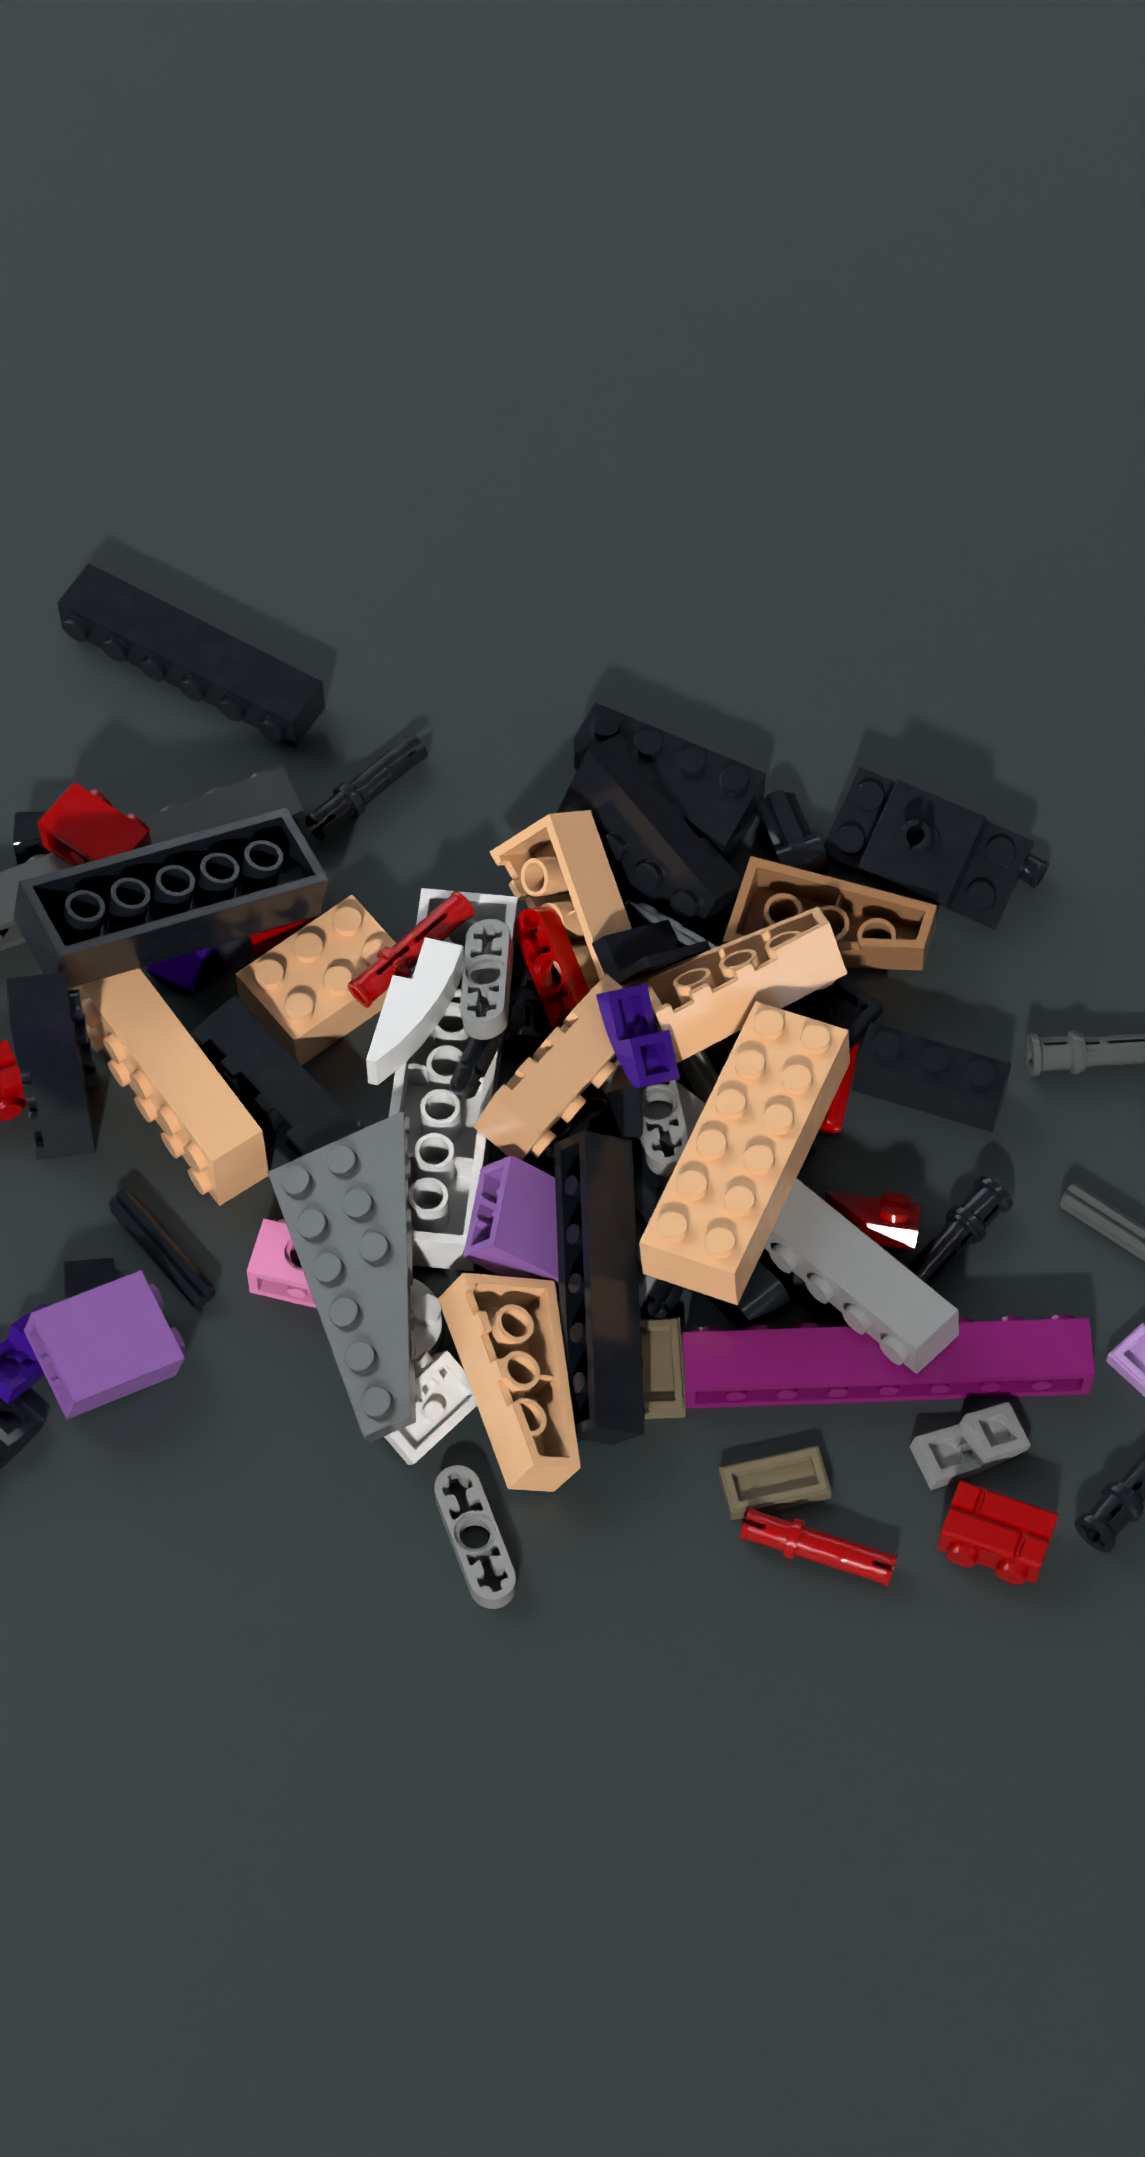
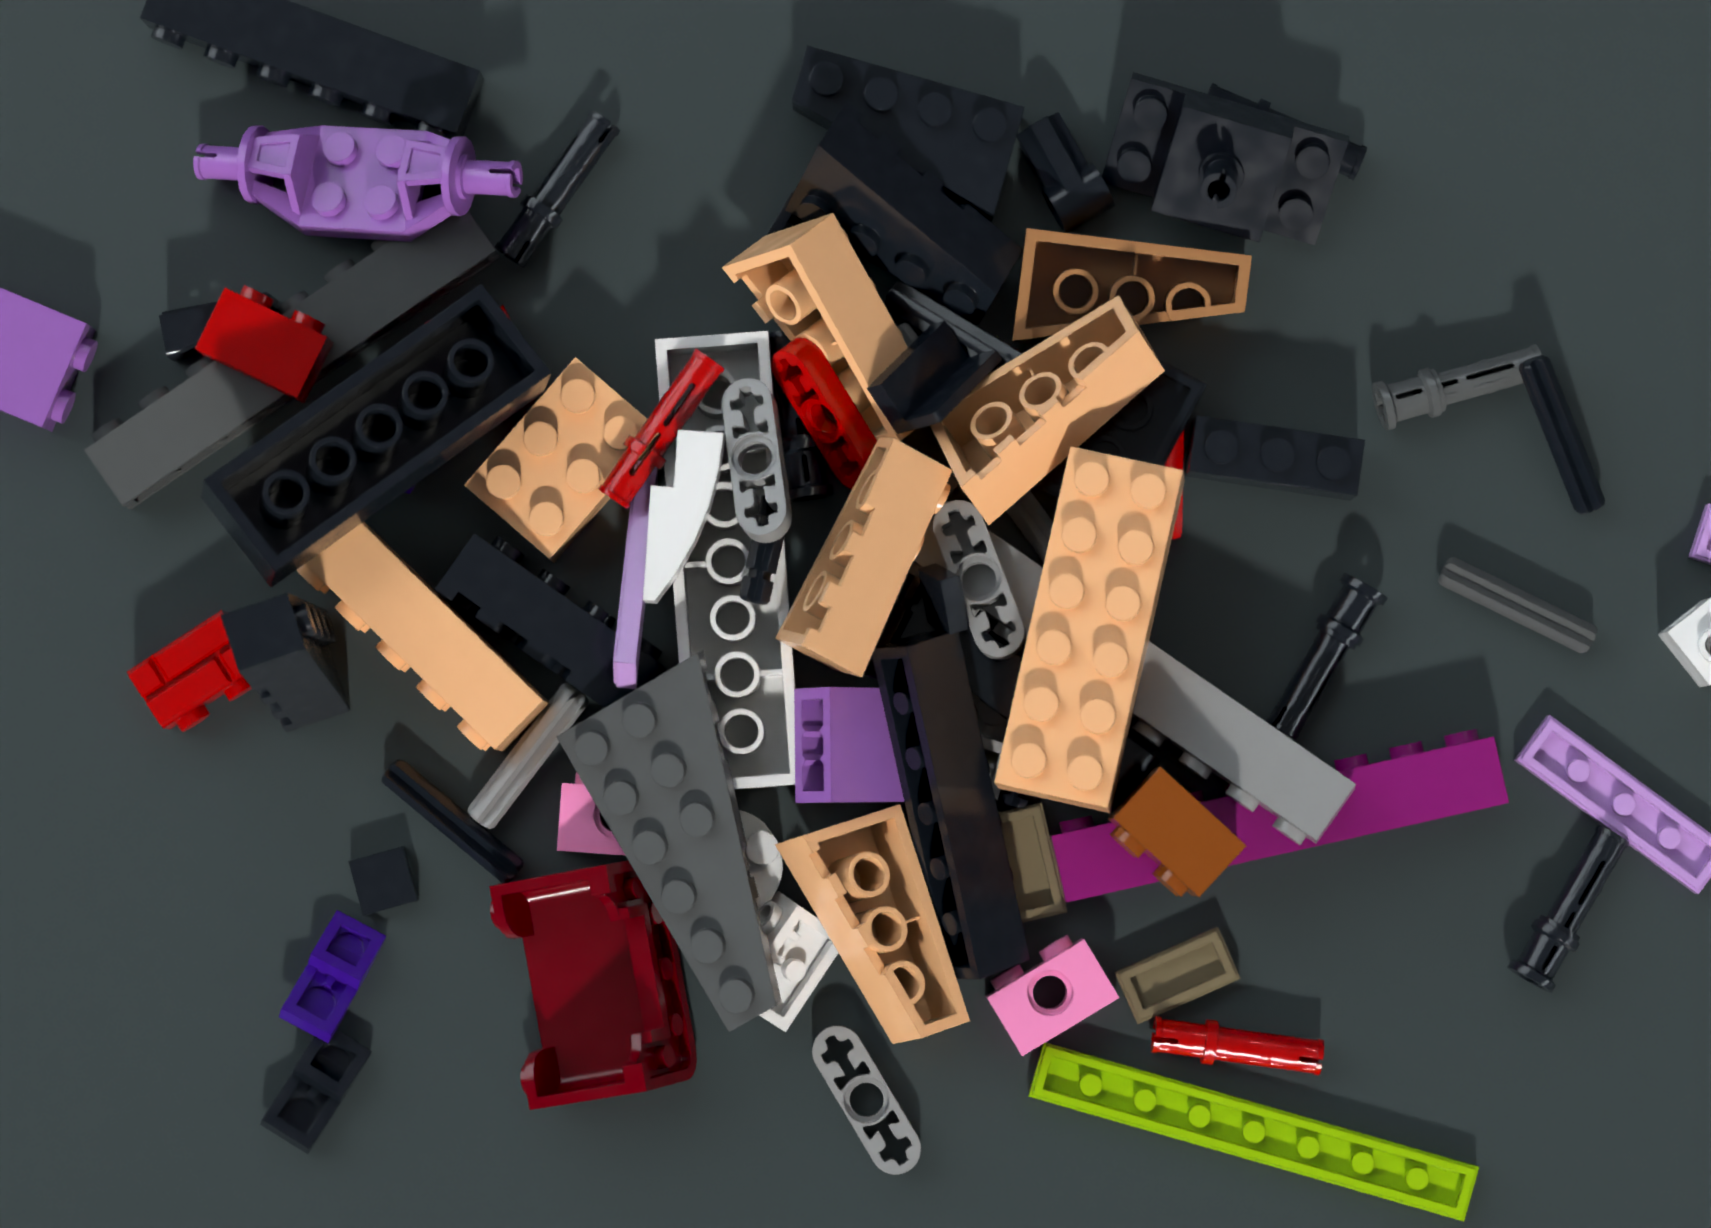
camera: 10 degrees left, 25 degrees up
(105, 1343) = (421, 963): medium lavender brick -> none
(203, 747) = (358, 178): none -> medium lavender plate
(230, 1213) = (527, 756): none -> light grey axle
(260, 1387) = (600, 985): none -> dark red windscreen
(353, 1083) = (631, 602): none -> lavender tile
(632, 1030) = (945, 521): dark purple slope -> none
(642, 1496) = (1085, 993): none -> bright pink brick
(791, 1326) = (1175, 834): none -> dark orange brick
(822, 1627) = (1253, 1131): none -> lime tile
(885, 1220) = (1244, 652): red wing -> none
(971, 1447) = (1381, 894): light grey slope -> none
(997, 1533) = (1427, 998): red brick -> none

